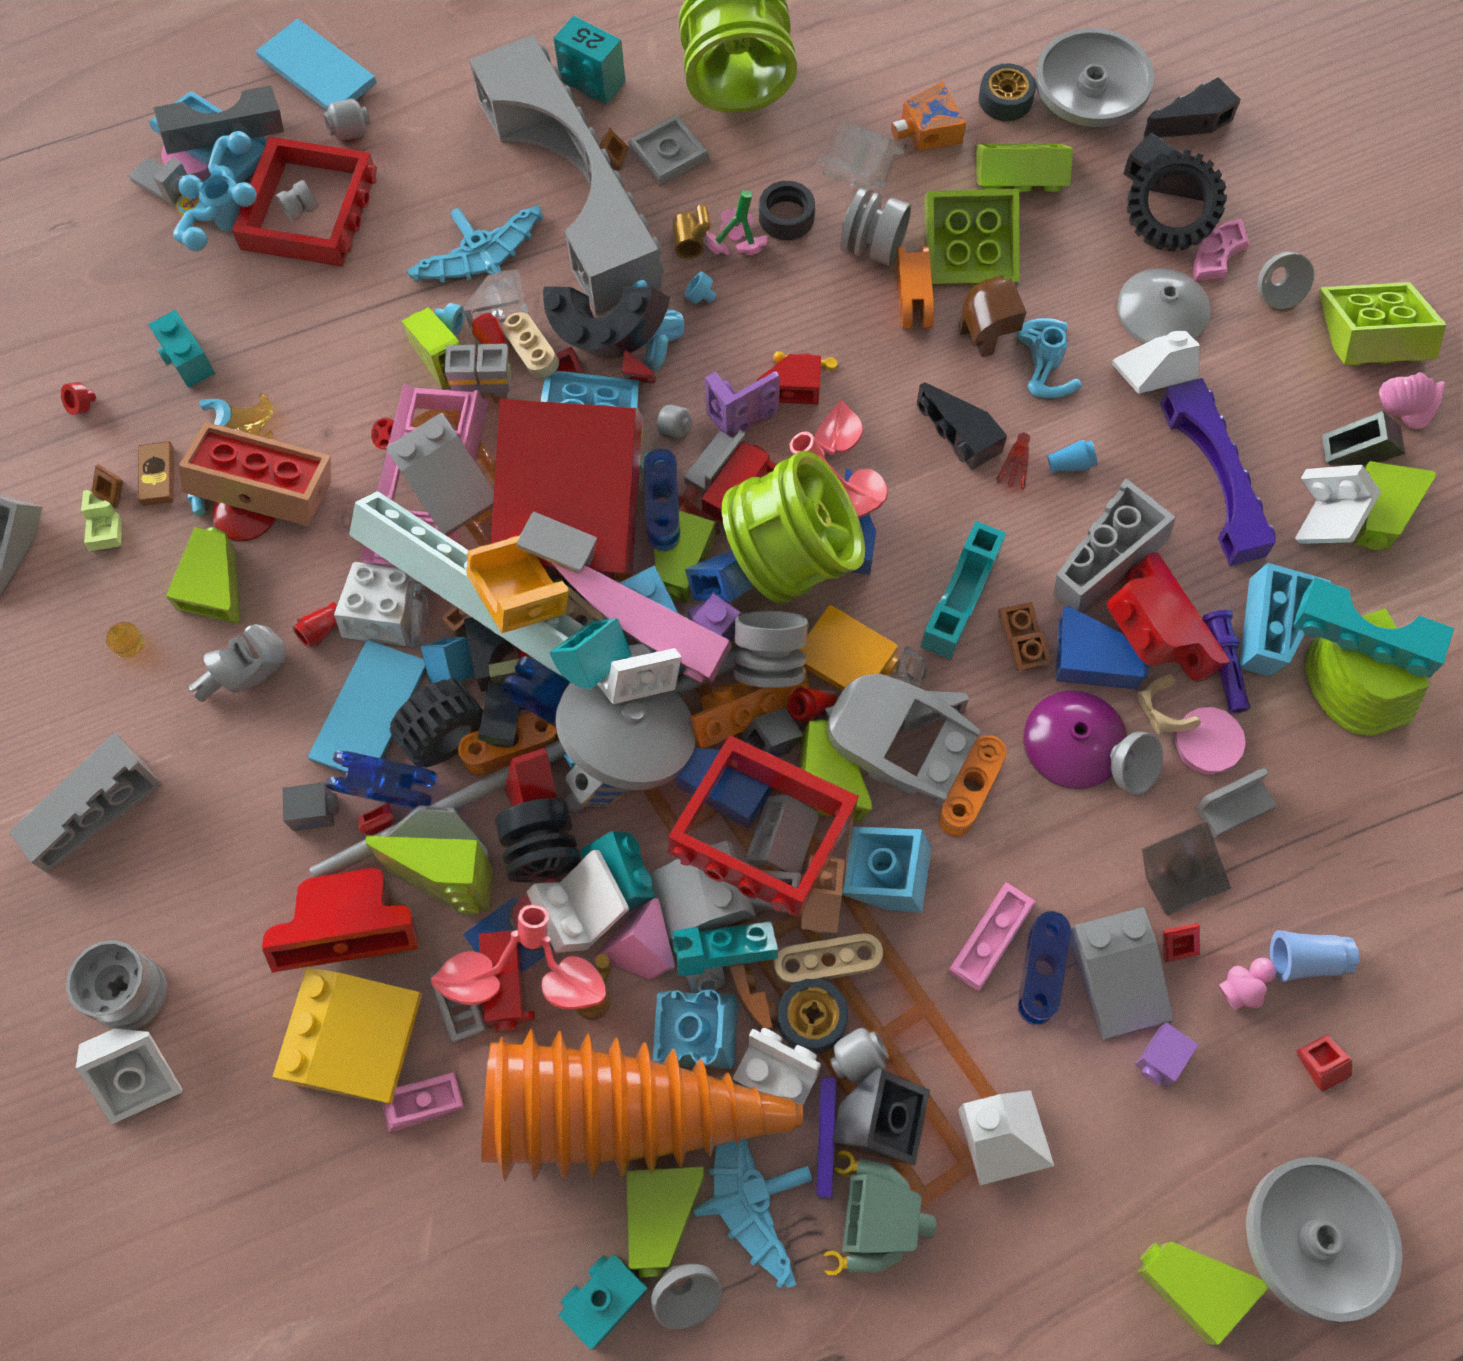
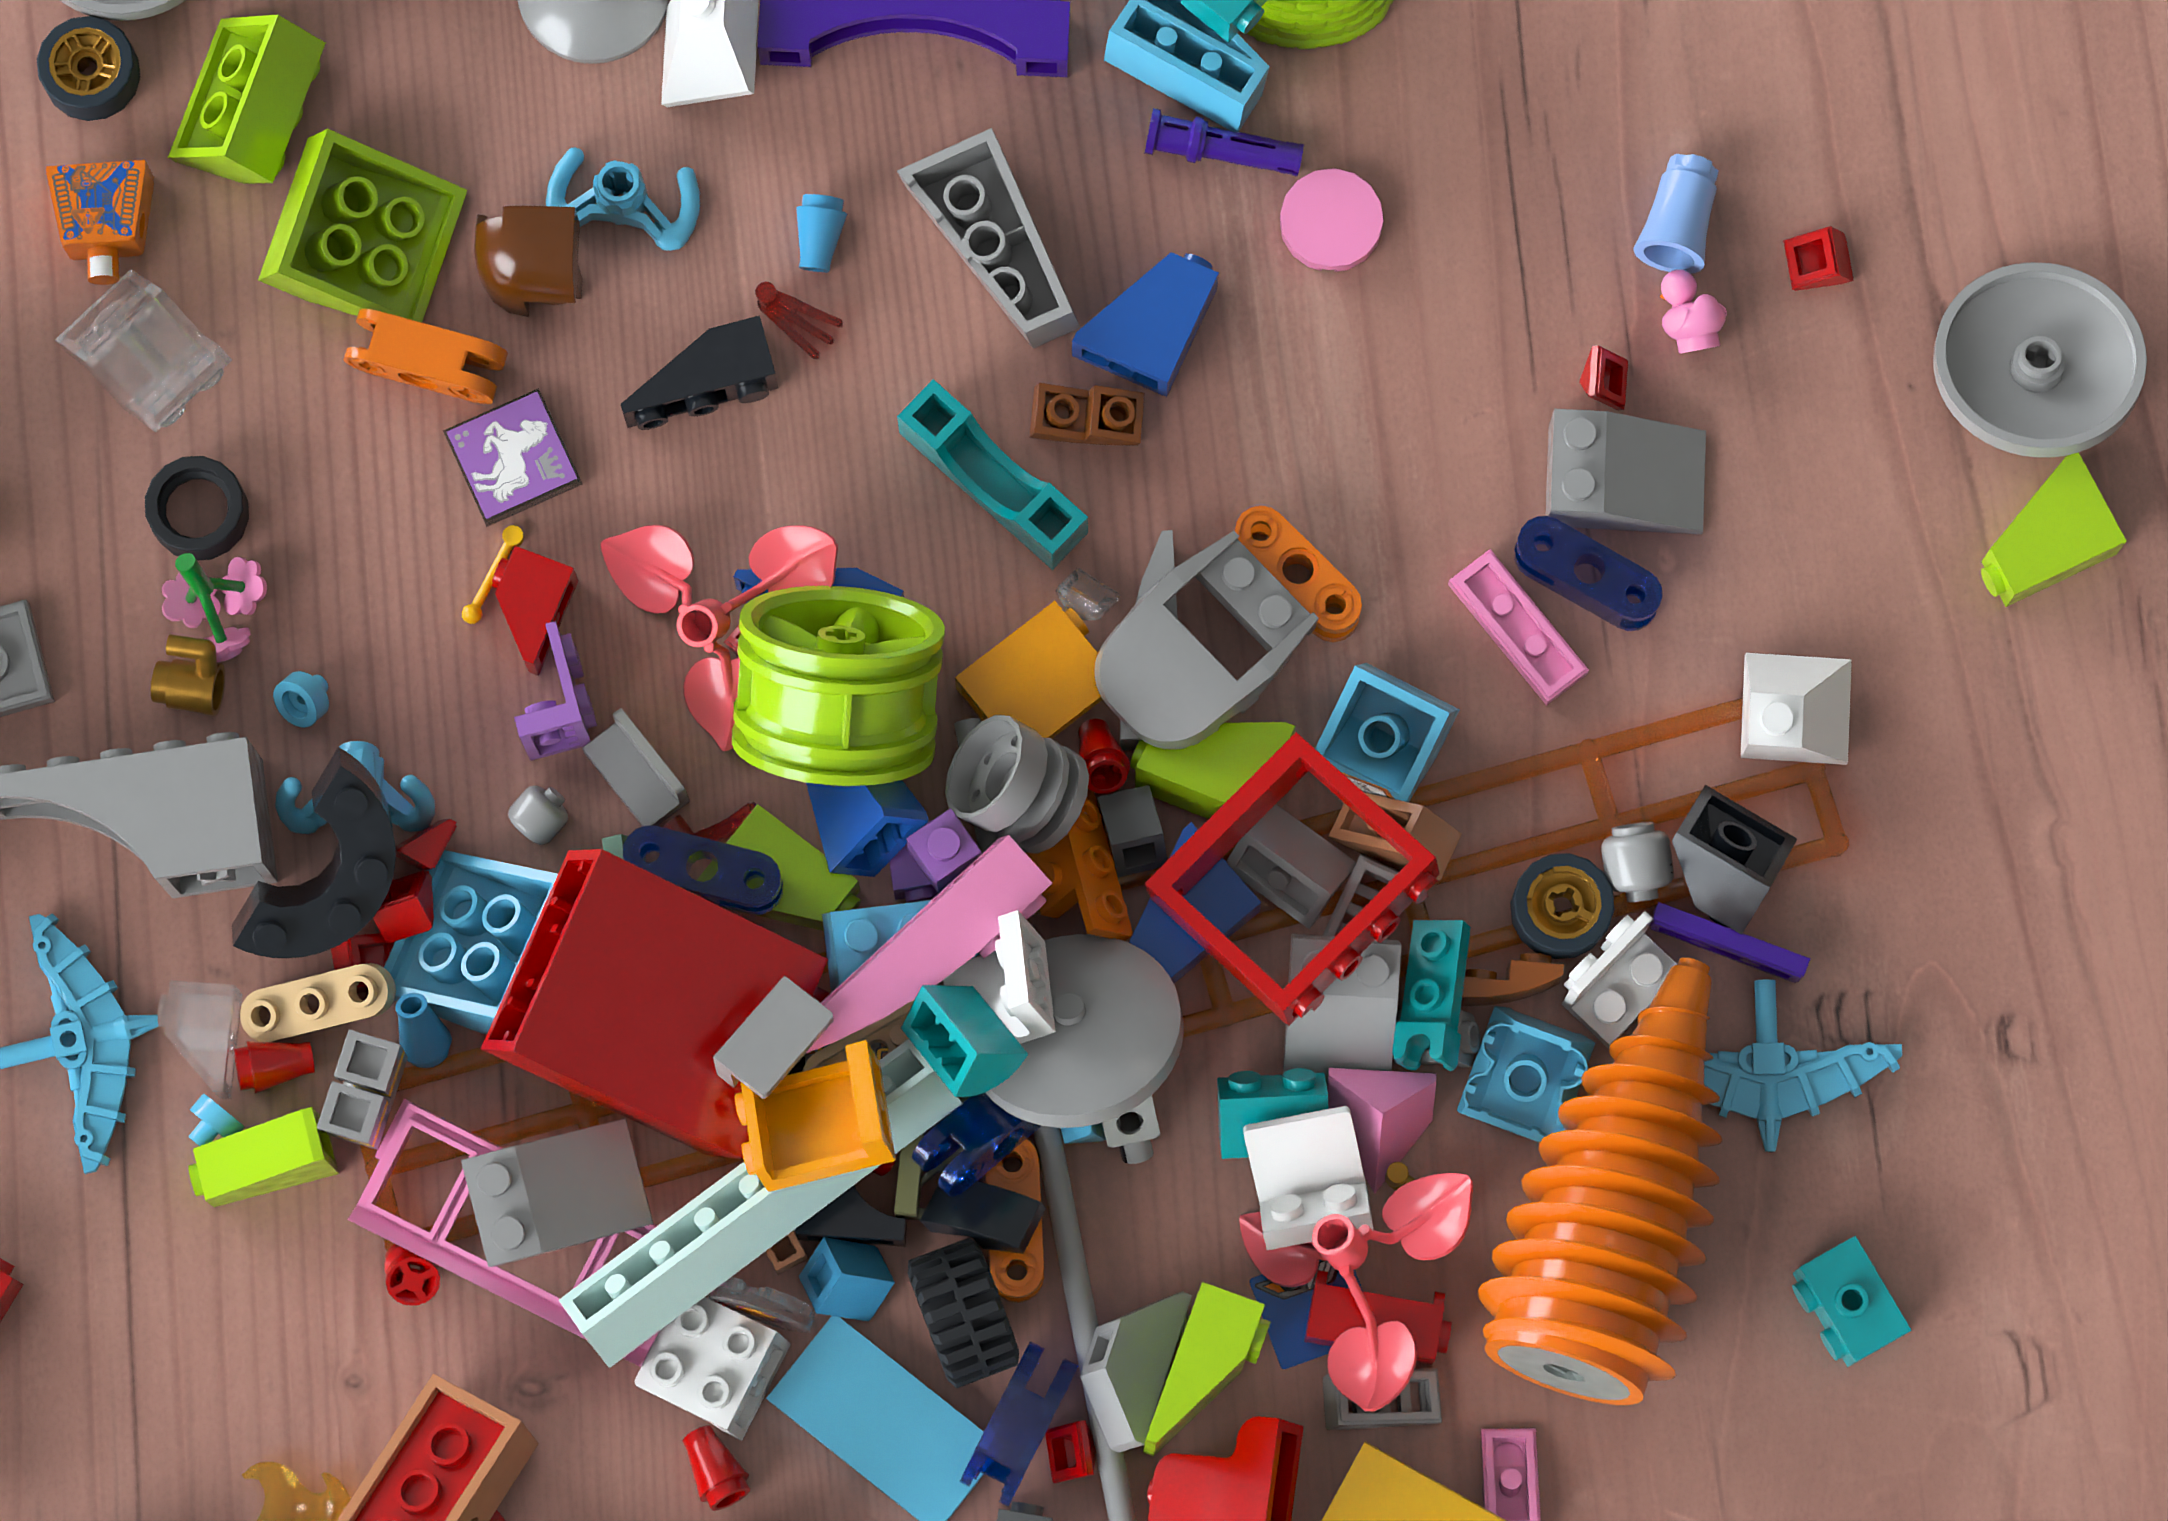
camera: 75 degrees left, 10 degrees up
(530, 388) = (421, 1032): none -> dark azure cone
(530, 778) = (1109, 1203): red slope -> none
(537, 840) = (1194, 1214): black wheel -> none
(598, 370) = (406, 907): none -> red slope
(659, 1215) = (1766, 1196): lime slope -> none
(689, 1303) = (1875, 1189): light grey piece -> none
(745, 463) = (692, 750): red brick -> none
(842, 949) = (1493, 836): tan plate -> none
(870, 225) = (301, 377): light grey wheel -> none
(875, 349) = (512, 457): none -> tile
(880, 1217) = (1852, 906): sand green torso -> none
(1060, 752) = (1262, 436): magenta dish -> none
(1142, 765) = (1338, 335): light grey piece -> none
(1159, 721) = (1287, 278): tan cap -> none
(1164, 622) = (1137, 211): red brick -> none
(1165, 1055) = (1752, 460): medium lavender brick -> none
(1185, 869) = (1509, 331): clear smoke slope -> none
(1236, 803) = (1438, 224): light grey panel -> none

